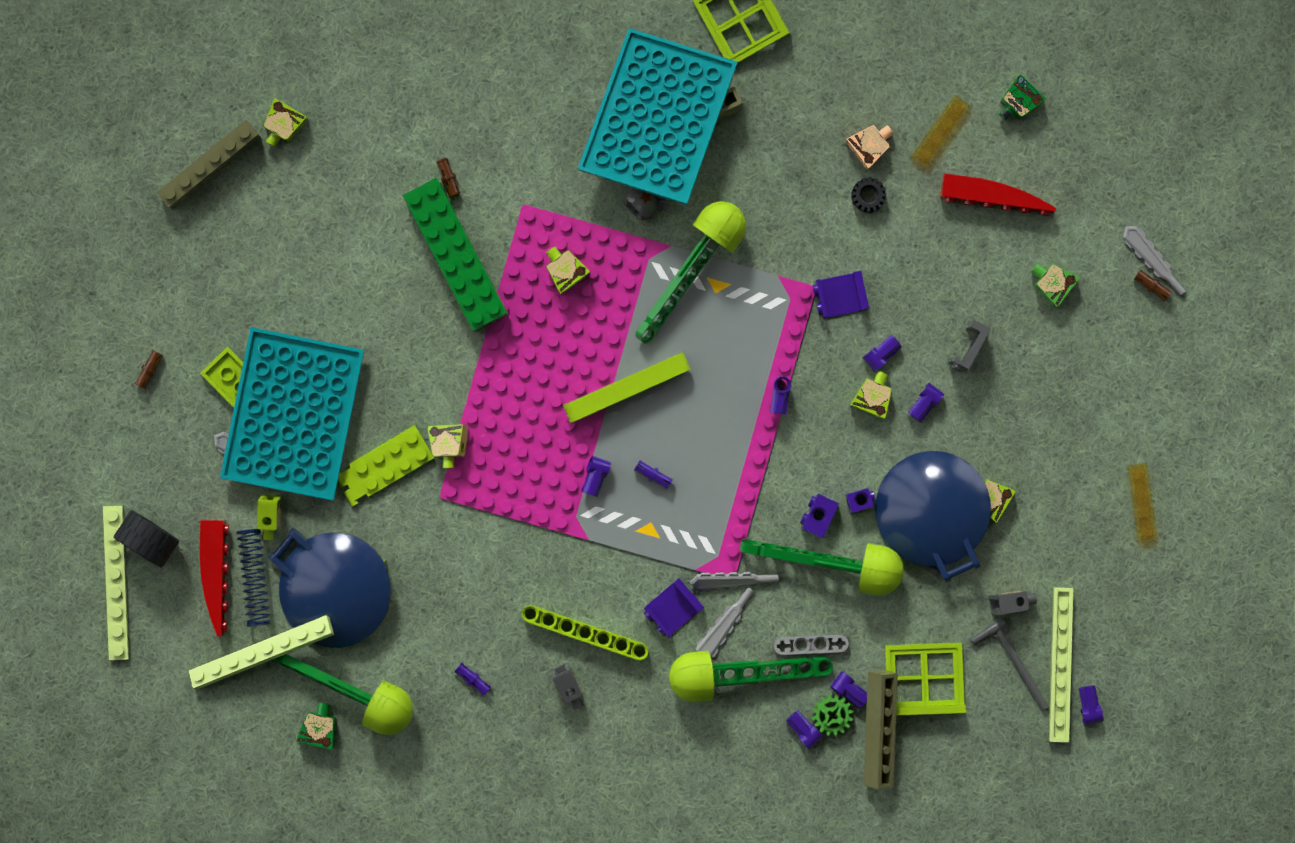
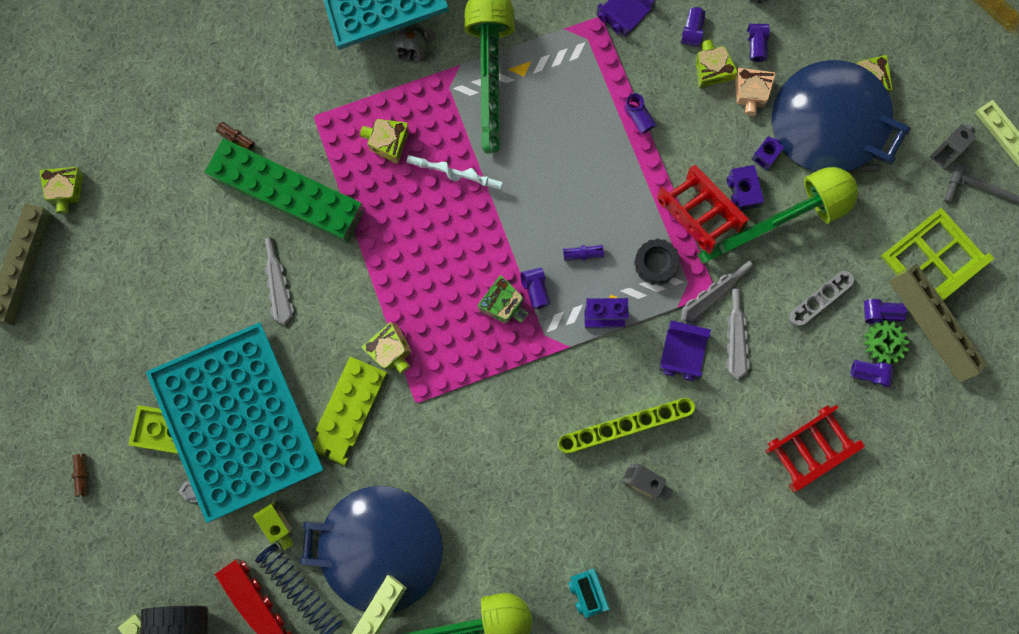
camera: 30 degrees left, 10 degrees down
(399, 323) = (279, 295): none -> light grey sword
(472, 679) = (559, 539): dark purple pin -> none
(472, 737) = (596, 589): none -> teal window
(561, 470) = (503, 302): none -> torso
(598, 338) = (455, 175): none -> light aqua piece
(626, 387) = (507, 197): lime beam -> none
(631, 537) = (606, 312): none -> dark purple panel
(695, 676) = (753, 390): piece -> none
(703, 767) = (815, 468): none -> red fence
(707, 509) = (664, 248): none -> black tyre
(786, 498) = (708, 192): none -> red fence
(889, 440) = (753, 89): none -> torso

